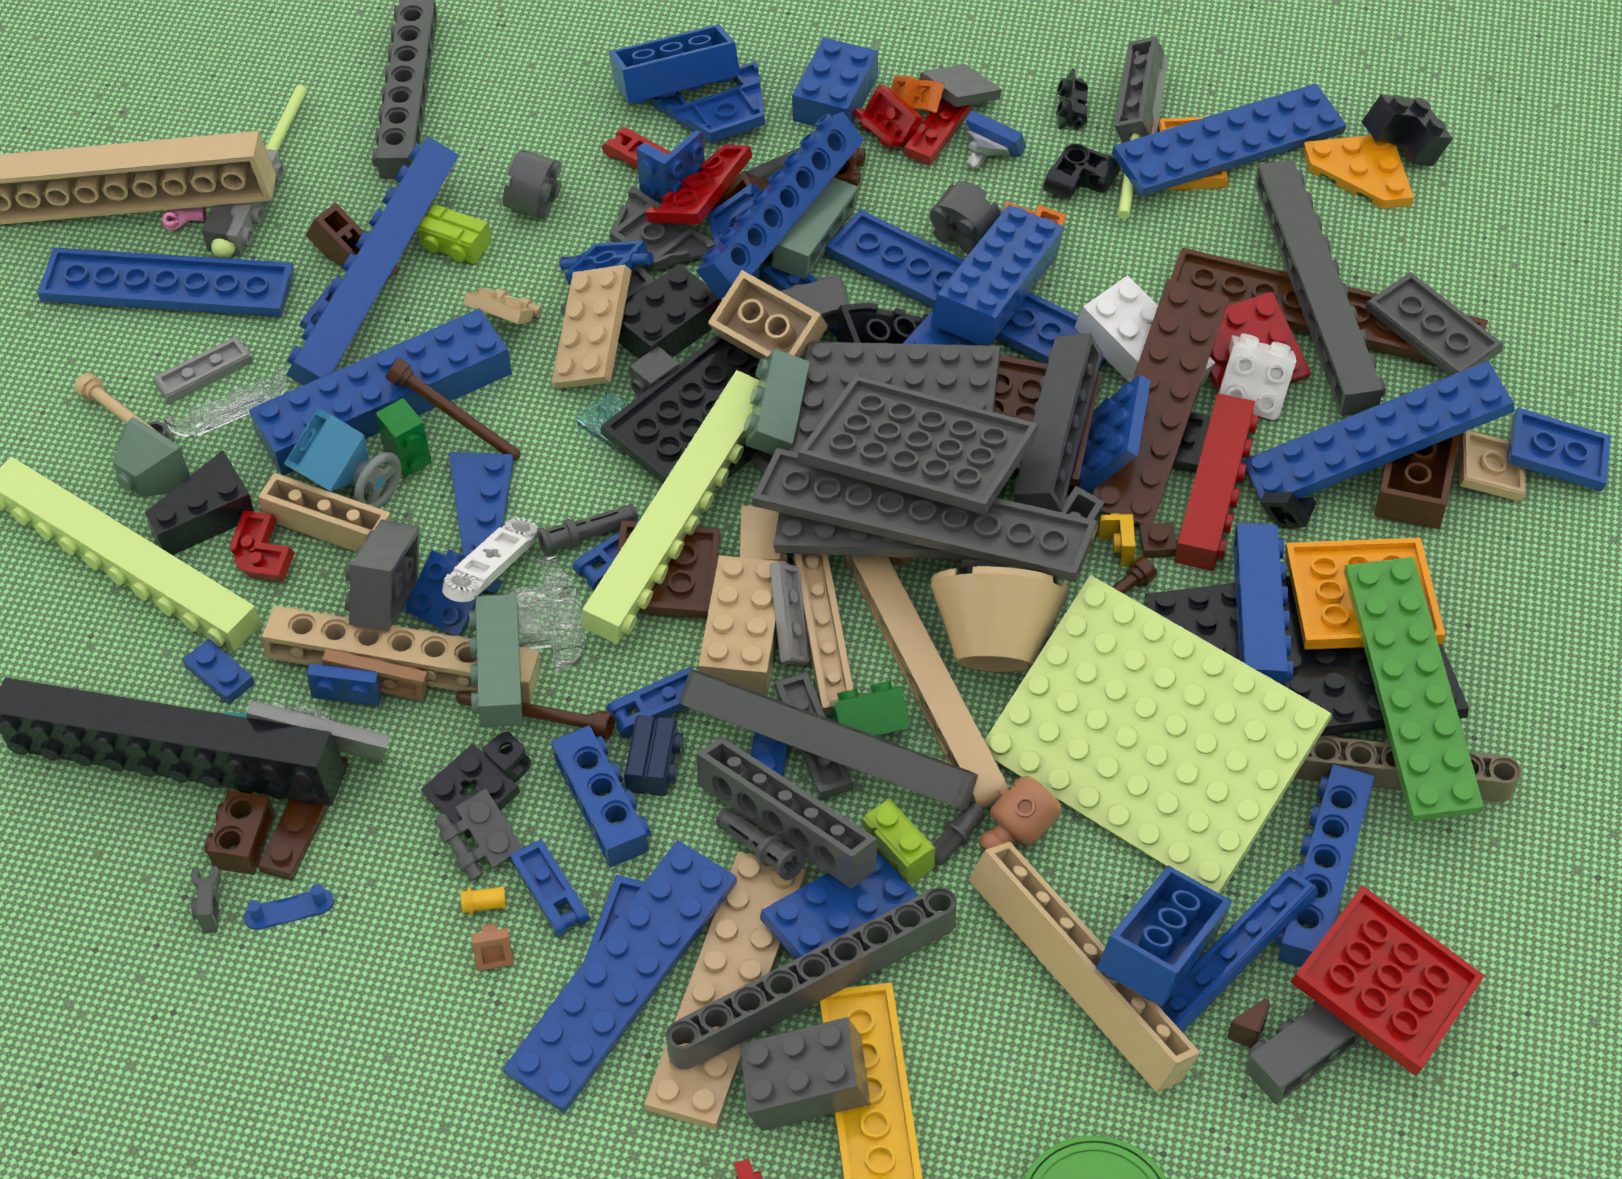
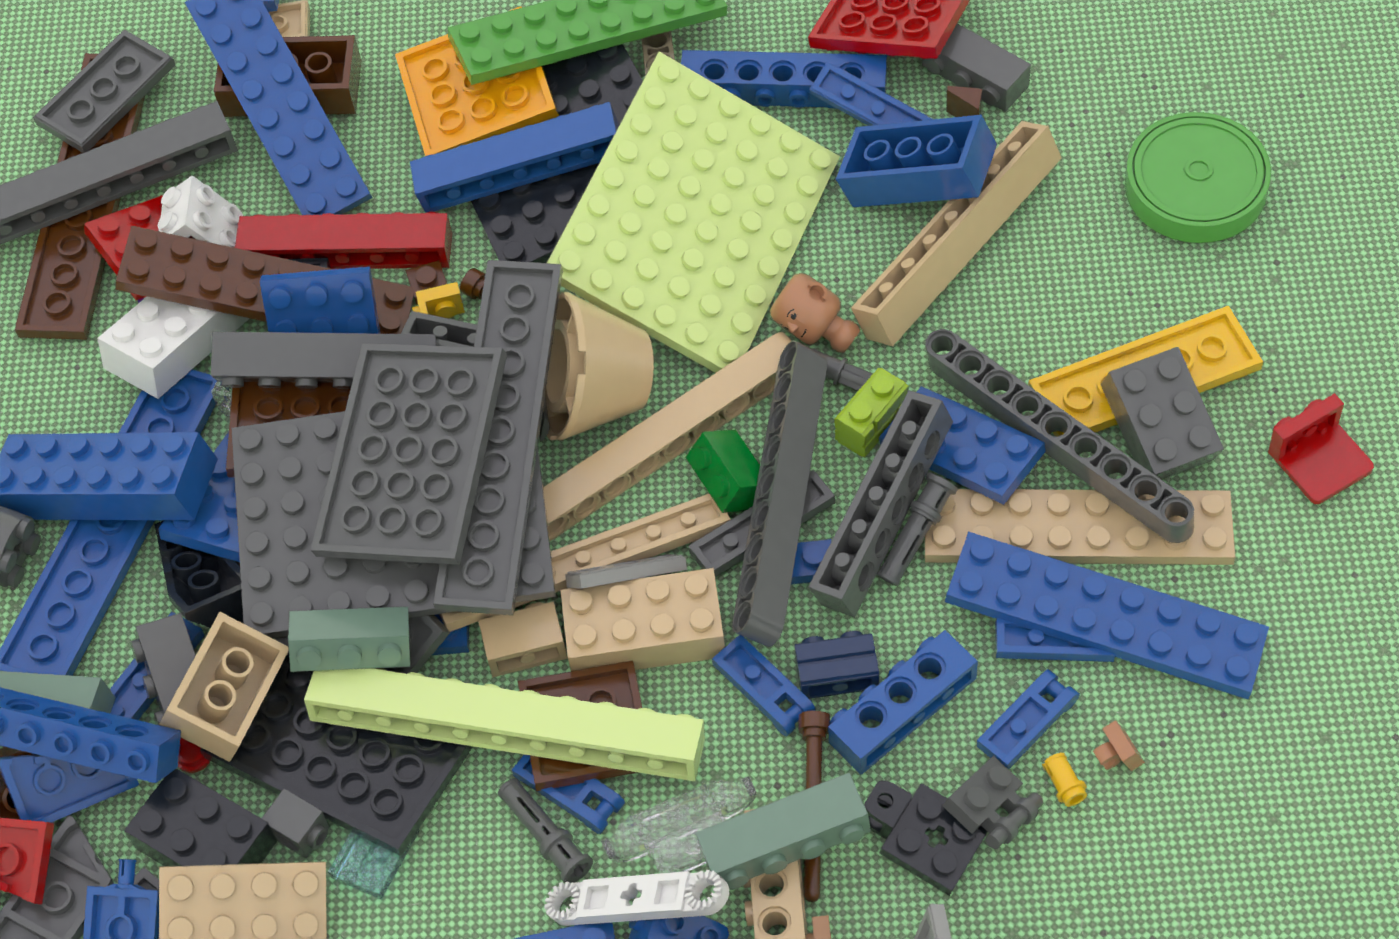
camera: 100 degrees left, 5 degrees up
(1288, 510) = (372, 169): black bracket -> none

